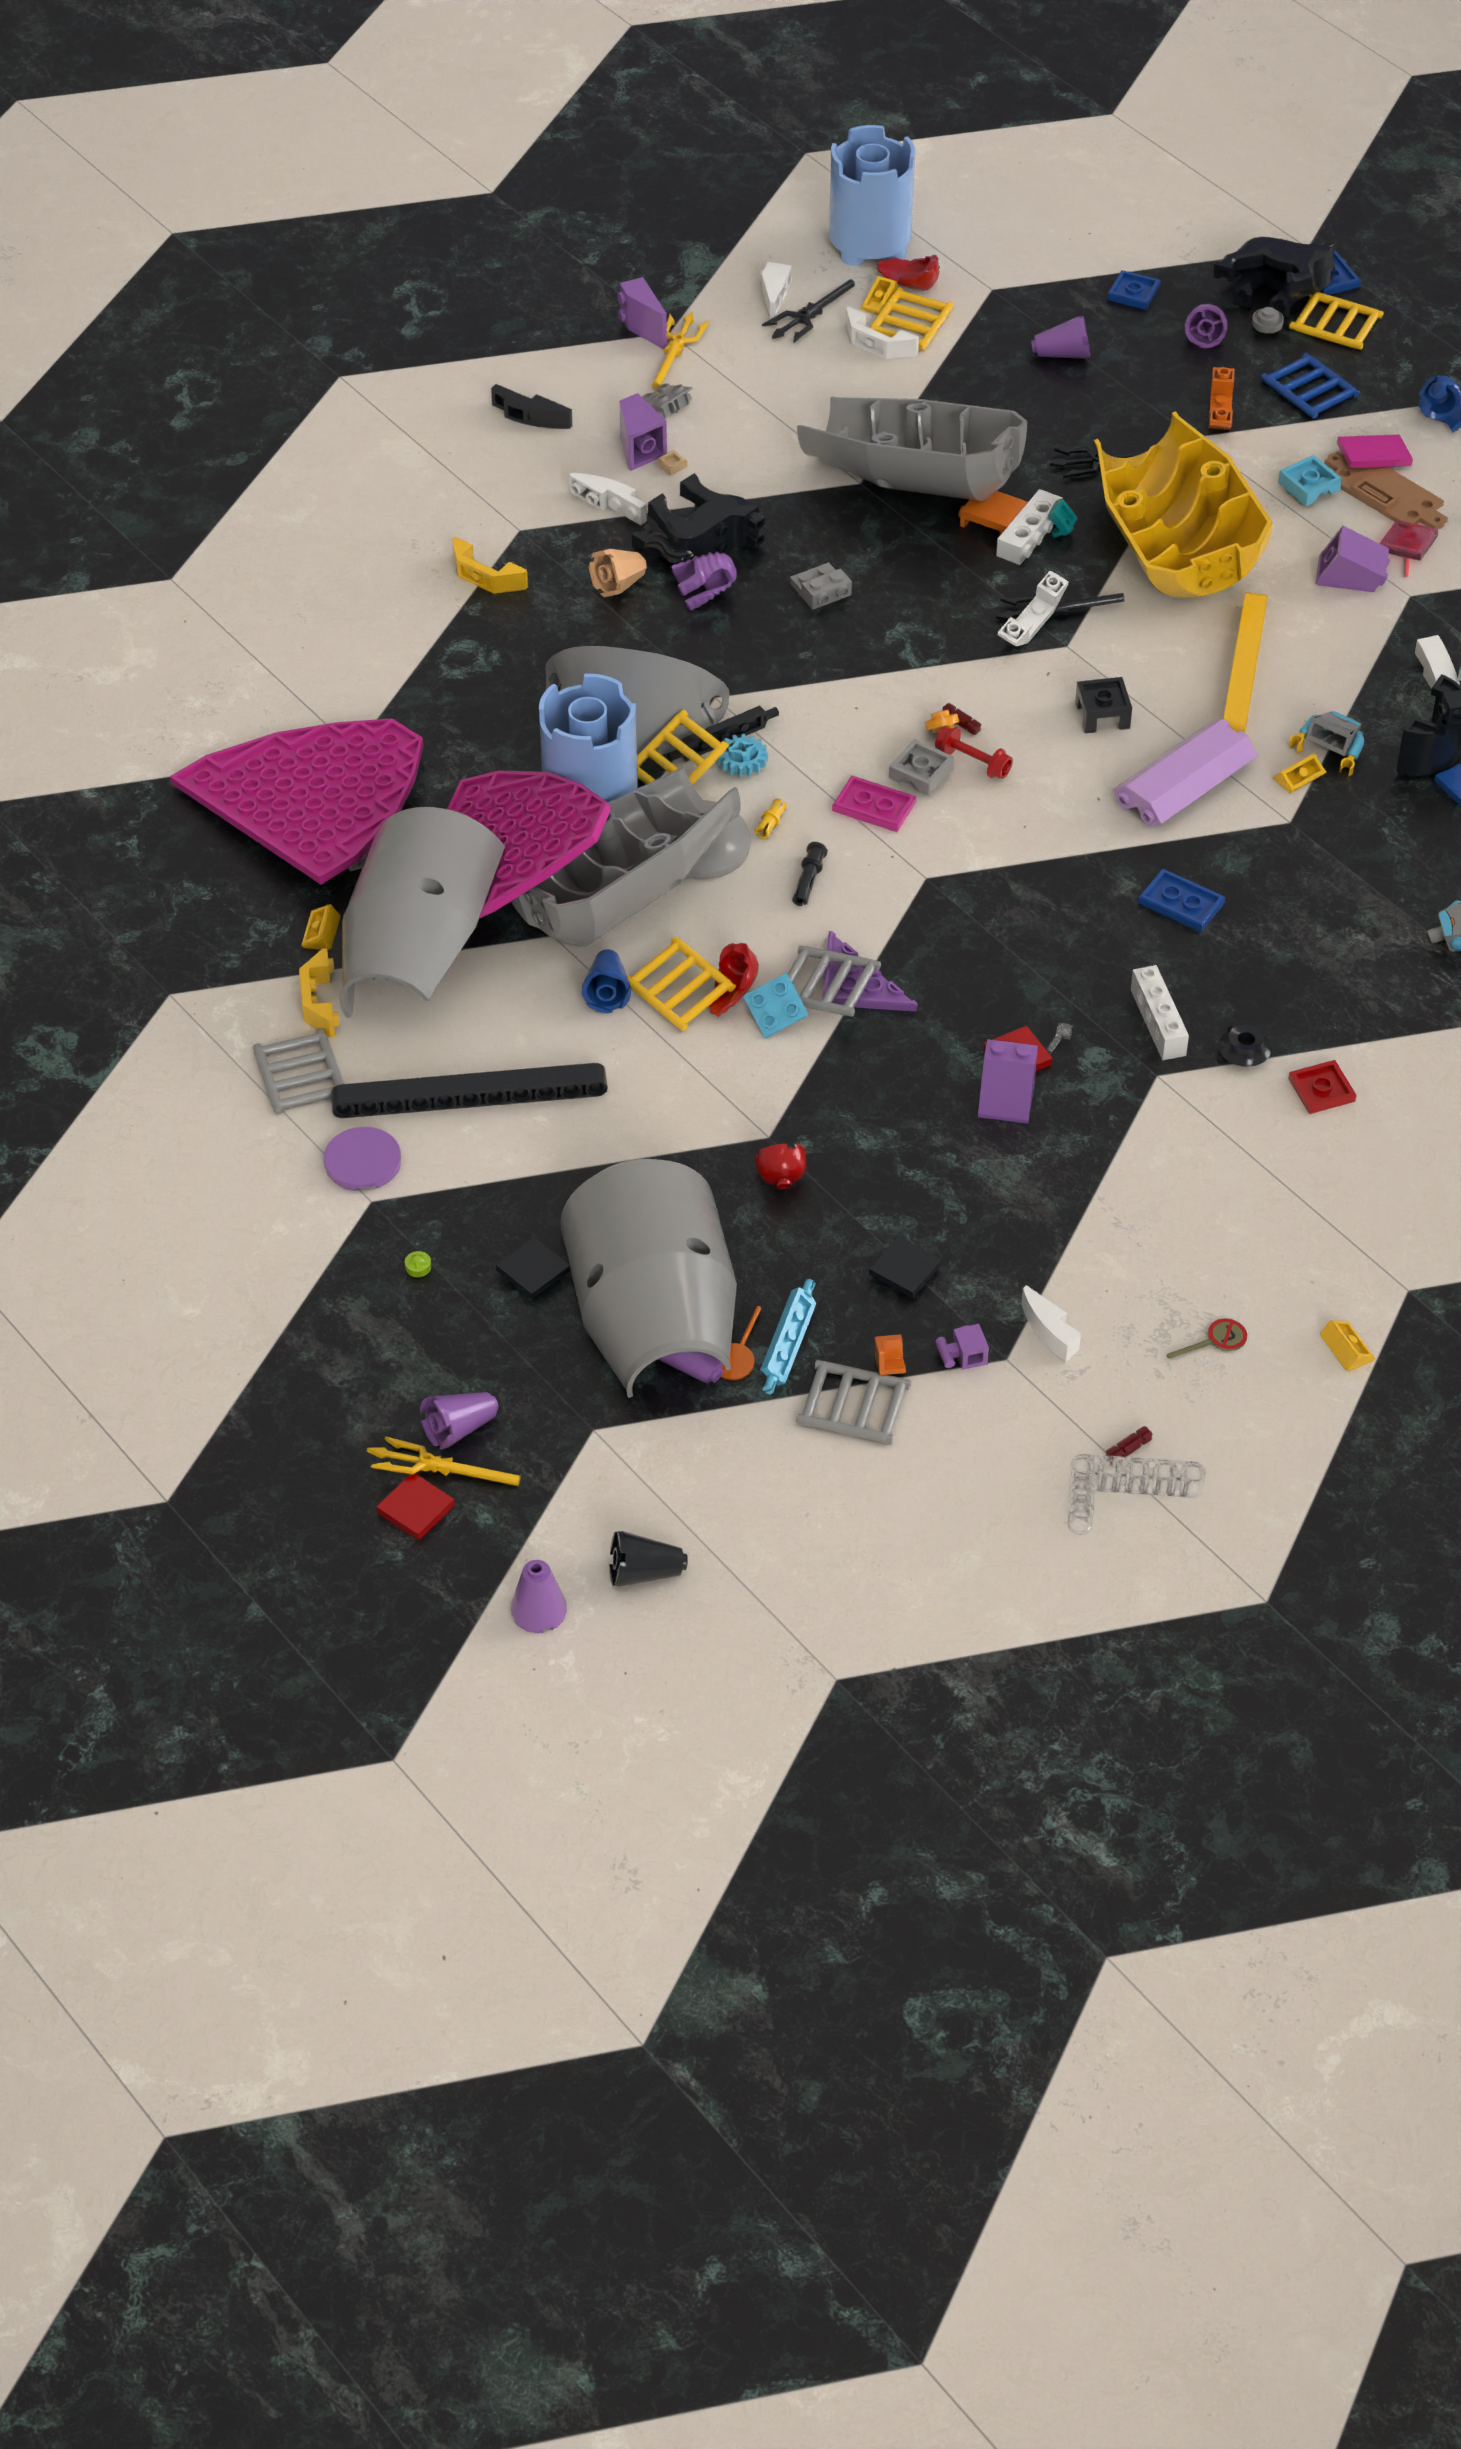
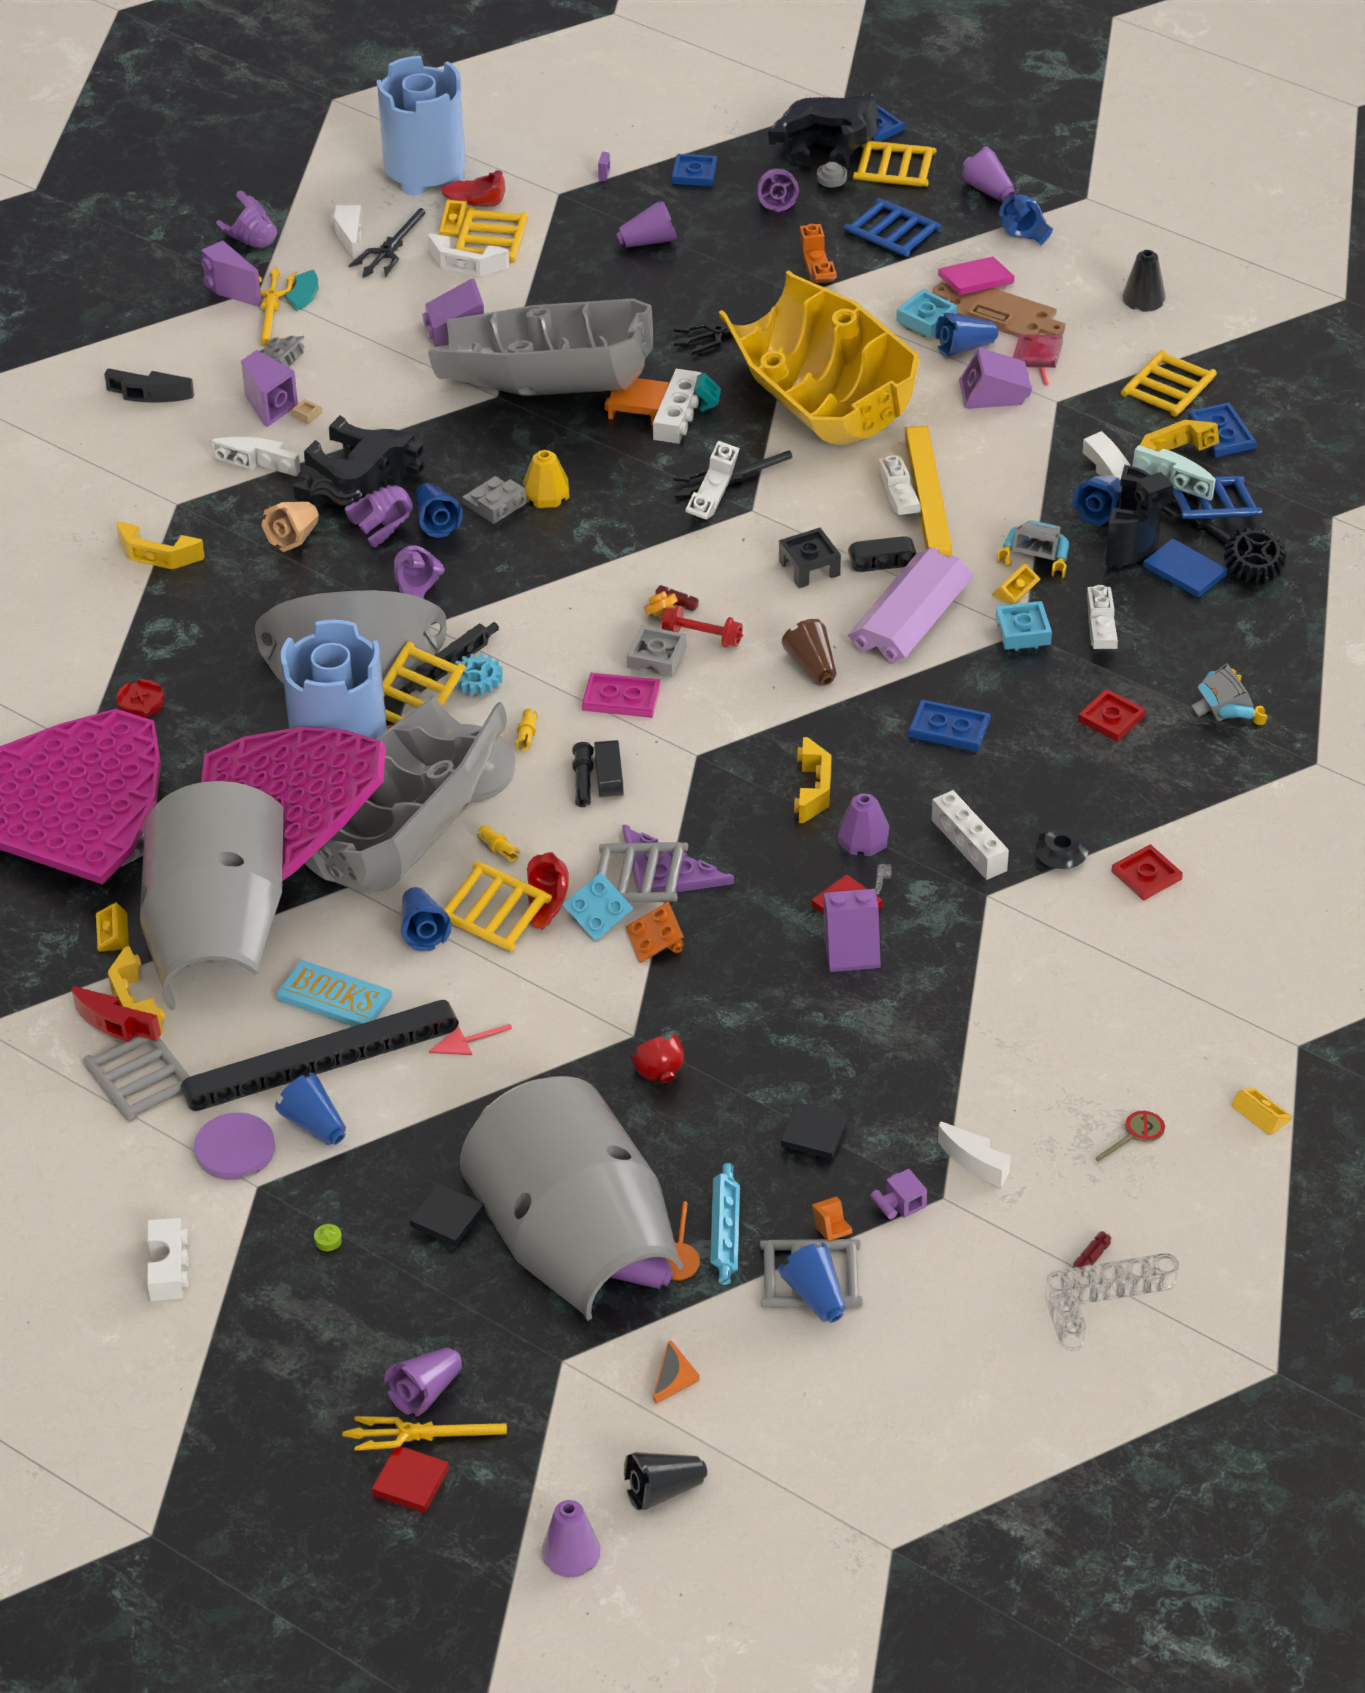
camera: 15 degrees left, 5 degrees down
(261, 1267) = (167, 1276): none -> white arch
(291, 1015) = (112, 1019): none -> red slope
(421, 713) = (140, 698): none -> red tile
(441, 1139) = (311, 1109): none -> blue cone
(502, 1035) = (333, 994): none -> medium azure tile
(601, 1107) = (457, 1044): none -> coral piece
(677, 267) = (252, 225): none -> medium lavender hair
(691, 1467) = (674, 1374): none -> orange tile
(705, 924) = (498, 843): none -> yellow pin
(709, 344) = (304, 290): none -> teal tile
(717, 643) = (416, 570): none -> medium lavender hair
(759, 586) = (437, 511): none -> blue cone
(823, 1042) = (655, 932): none -> orange hinge
(835, 873) = (608, 768): none -> black beam
(845, 383) = (456, 303): none -> medium lavender slope
(849, 1410) = (815, 1281): none -> blue cone
(874, 577) = (545, 481): none -> yellow cone
(1021, 947) = (818, 799): none -> yellow slope
(1044, 269) = (604, 166): none -> medium lavender tile
(1059, 983) = (863, 826): none -> medium lavender cone
(1070, 797) = (811, 650): none -> reddish brown cone
(1176, 715) = (881, 553): none -> black beam
(1218, 649) = (898, 486): none -> white slope
(1286, 808) = (1023, 625): none -> medium azure brick
(1339, 508) = (963, 333): none -> blue cone
(1346, 923) = (1112, 715): none -> red tile
(1370, 823) = (1101, 617): none -> white slope
(1409, 700) = (1097, 498): none -> blue cone
(1422, 349) = (988, 175): none -> medium lavender cone

